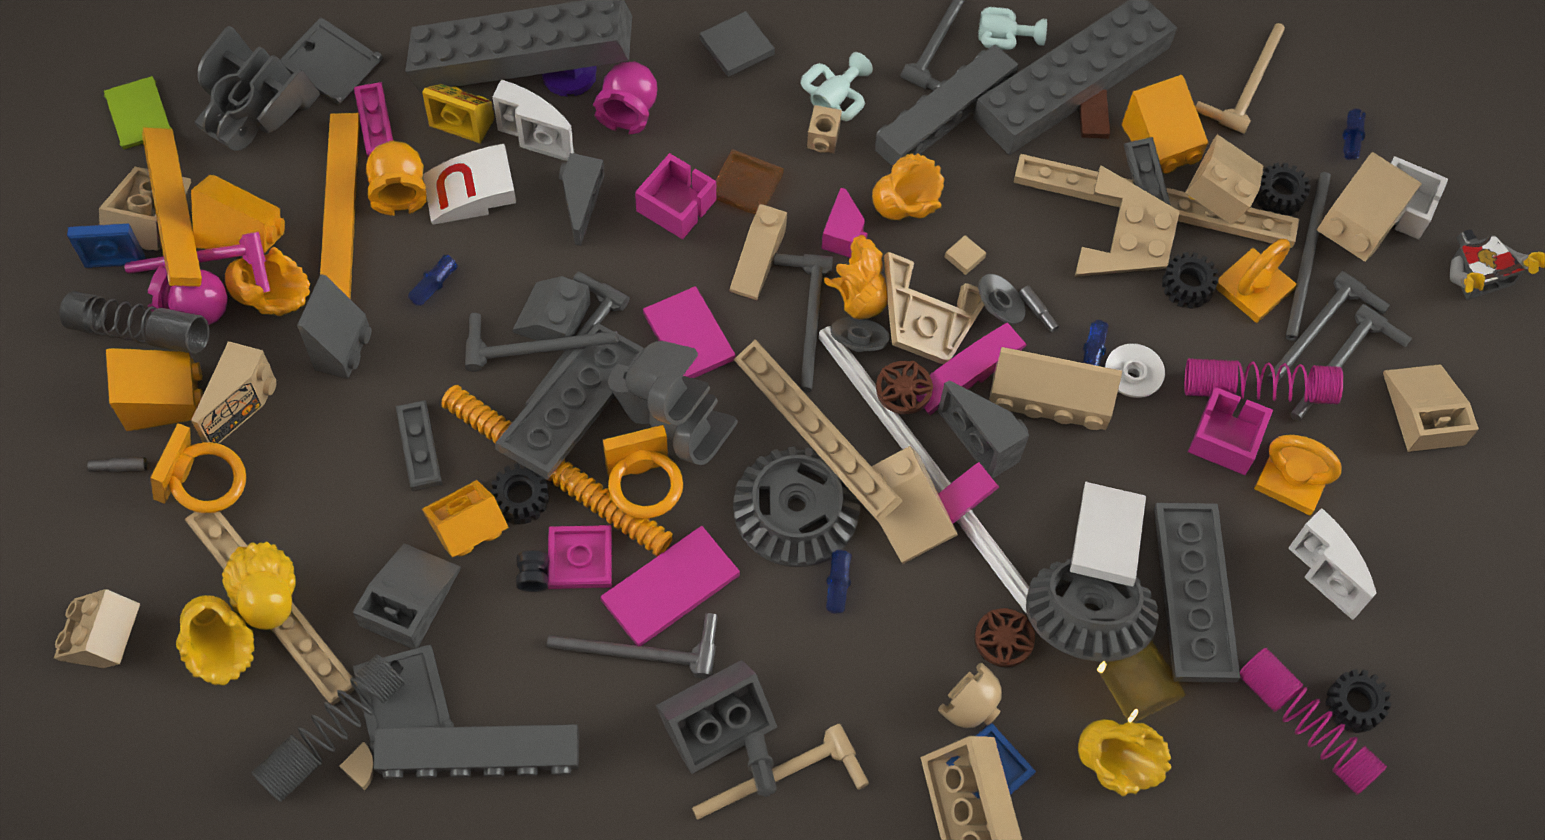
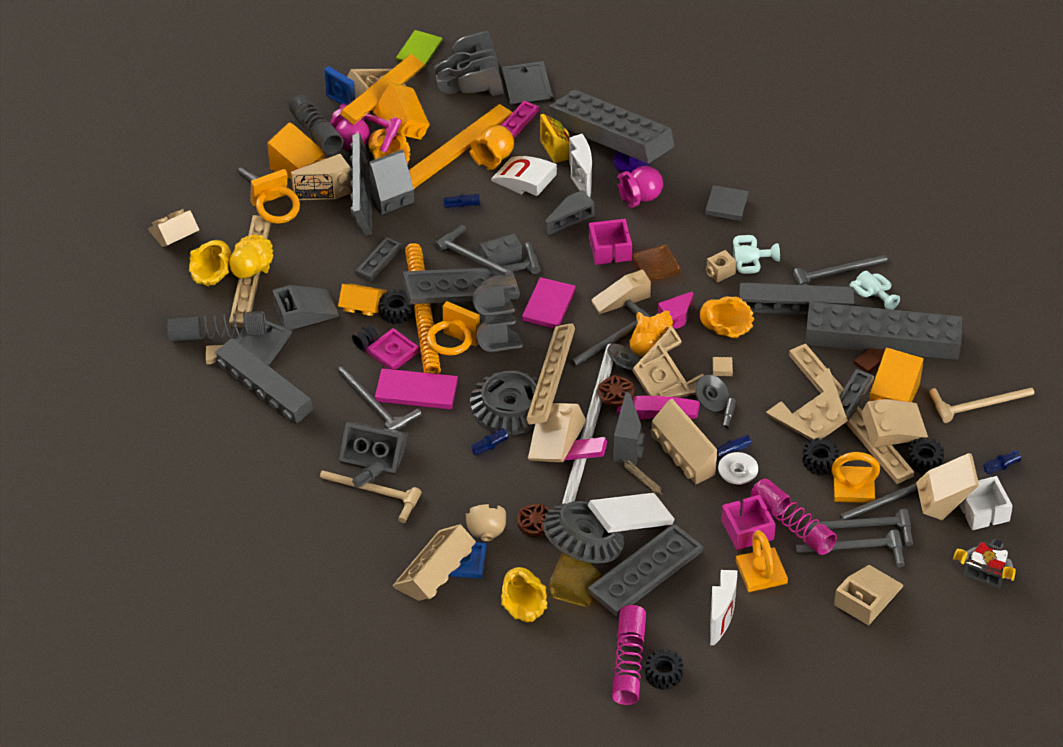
camera: 50 degrees right, 15 degrees down
(290, 361) = (361, 185): none -> dark grey plate
(1028, 470) = (643, 478): none -> tan piece

